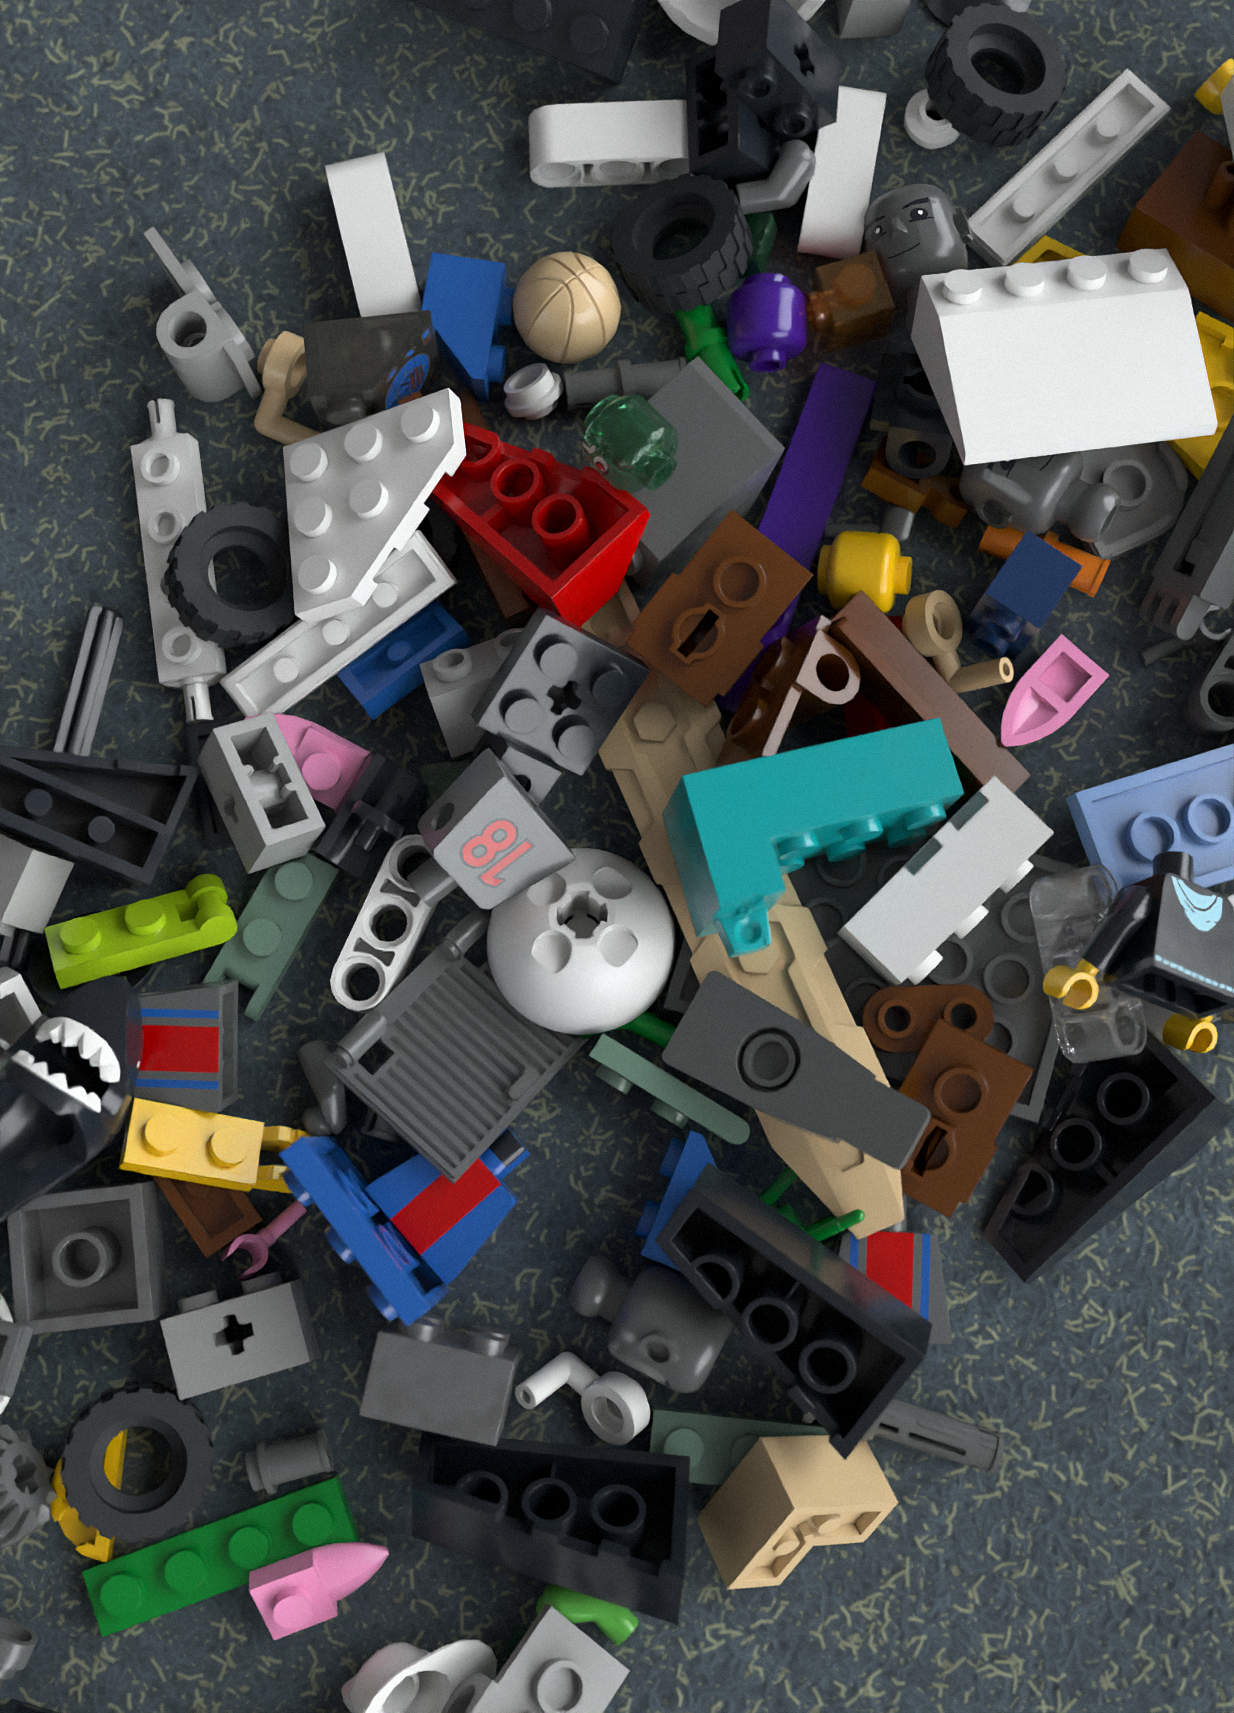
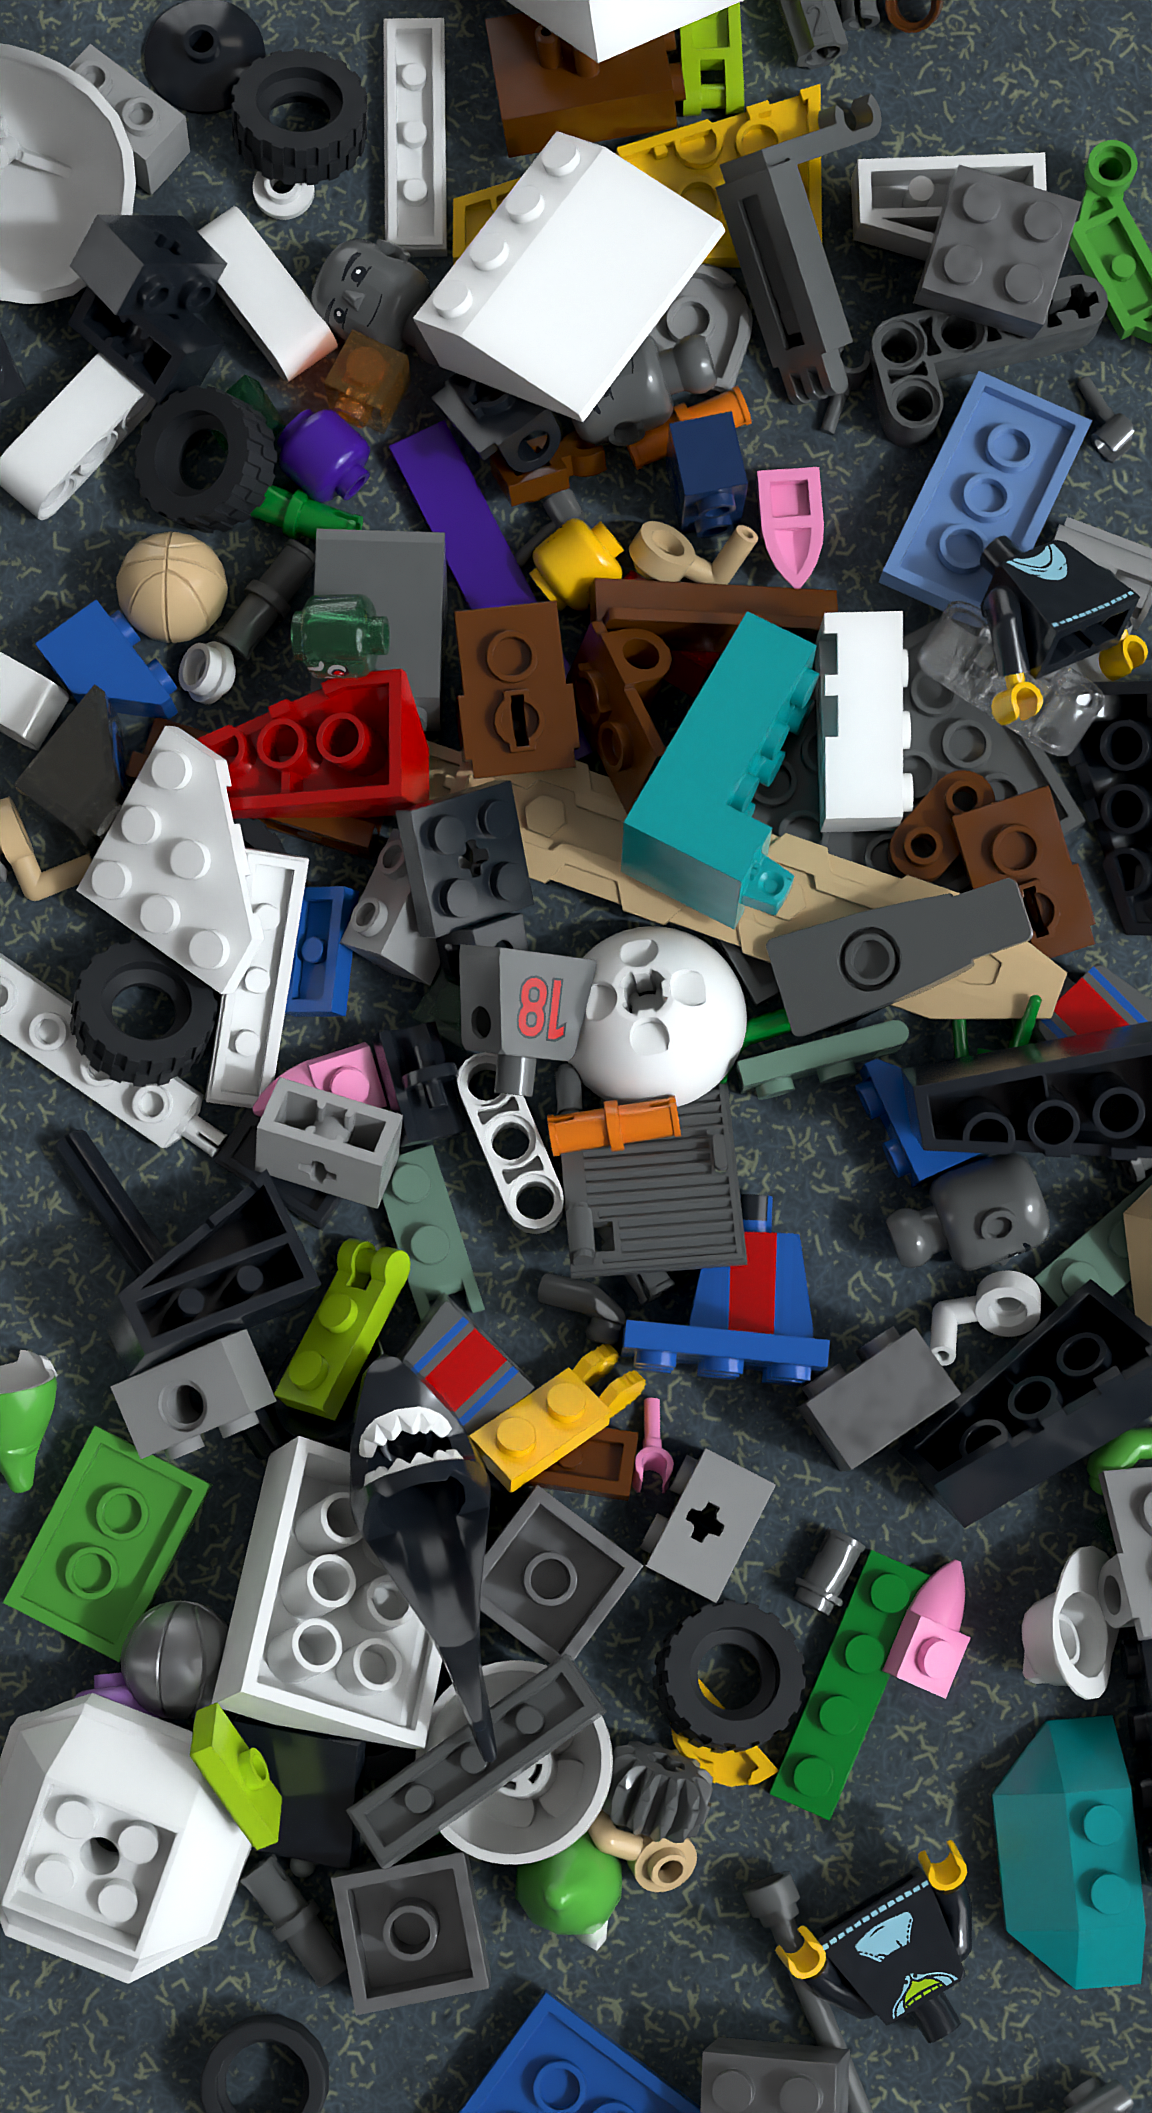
camera: 50 degrees left, 0 degrees up
(468, 987) = (613, 1125): none -> orange pin
(784, 183) = (234, 344): dark grey arm -> none

